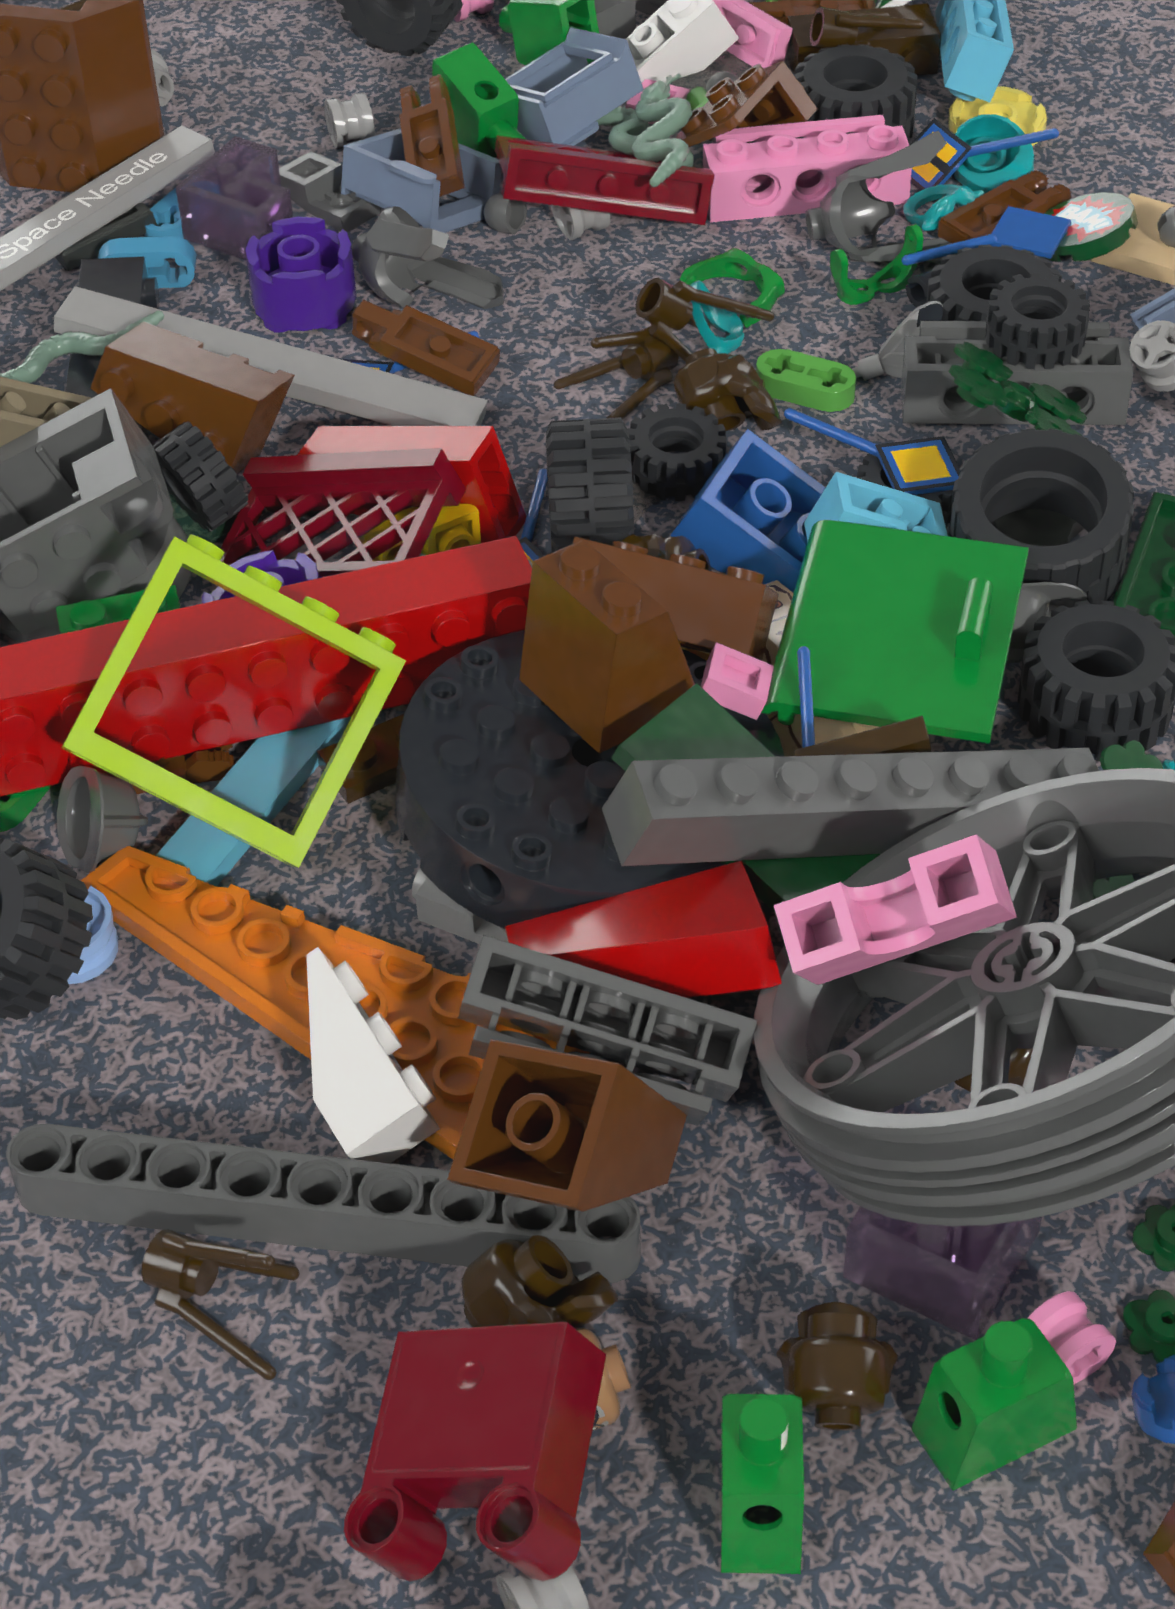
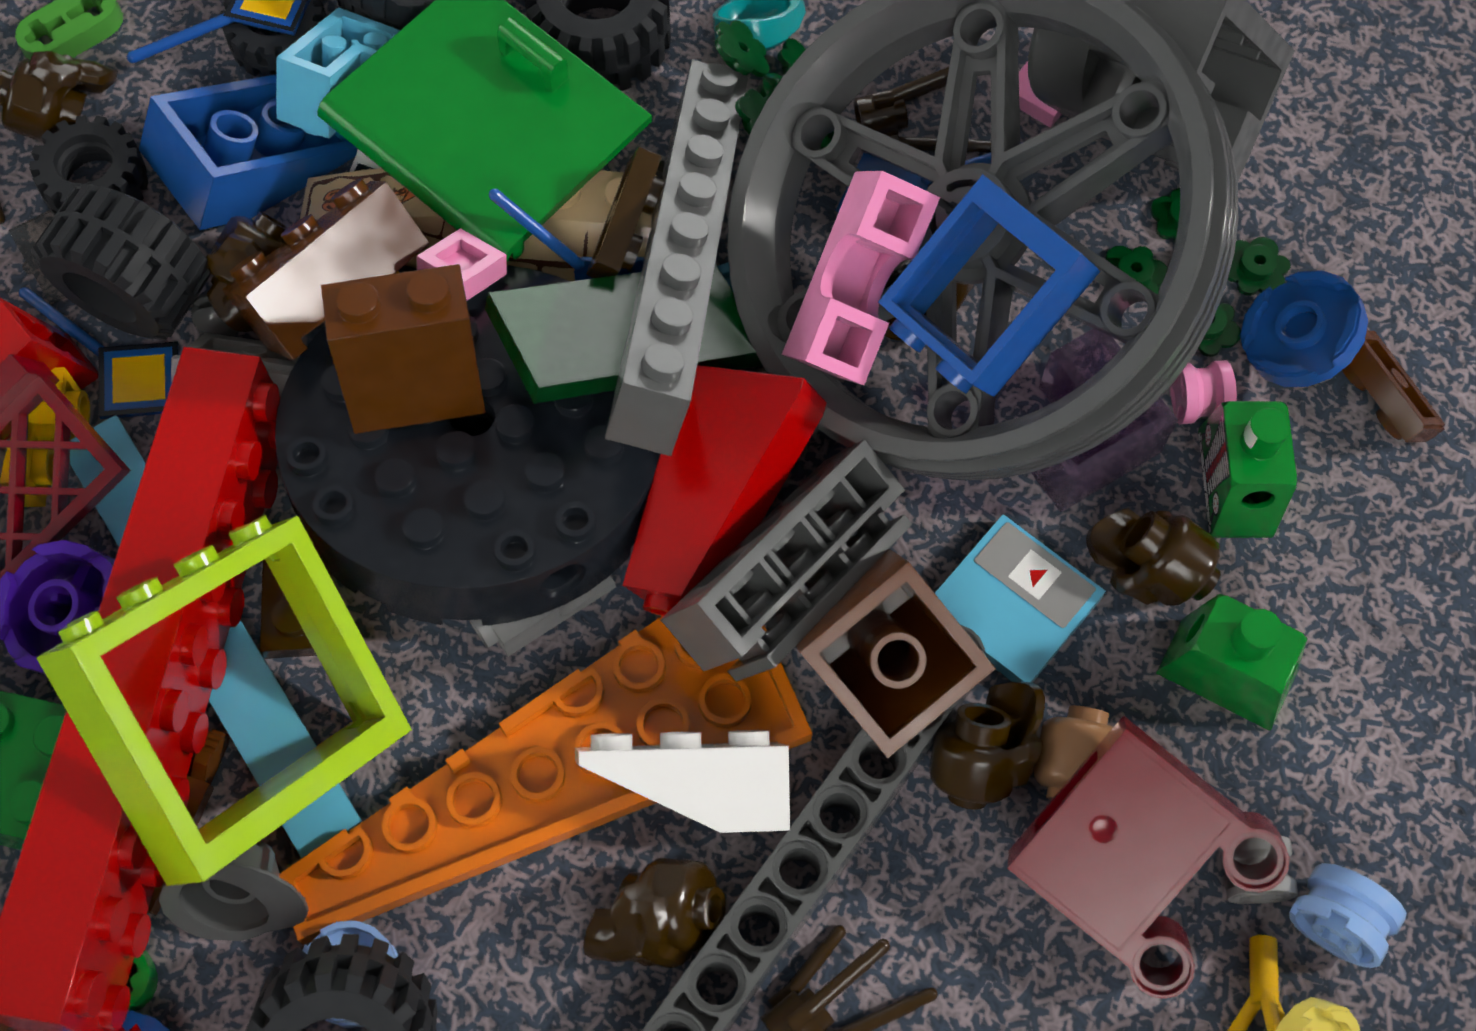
camera: 65 degrees left, 20 degrees up
(226, 1103) = (658, 915): none -> dark brown head
(715, 1275) = (1018, 599): none -> medium azure tile
(989, 949) = (945, 256): none -> blue window

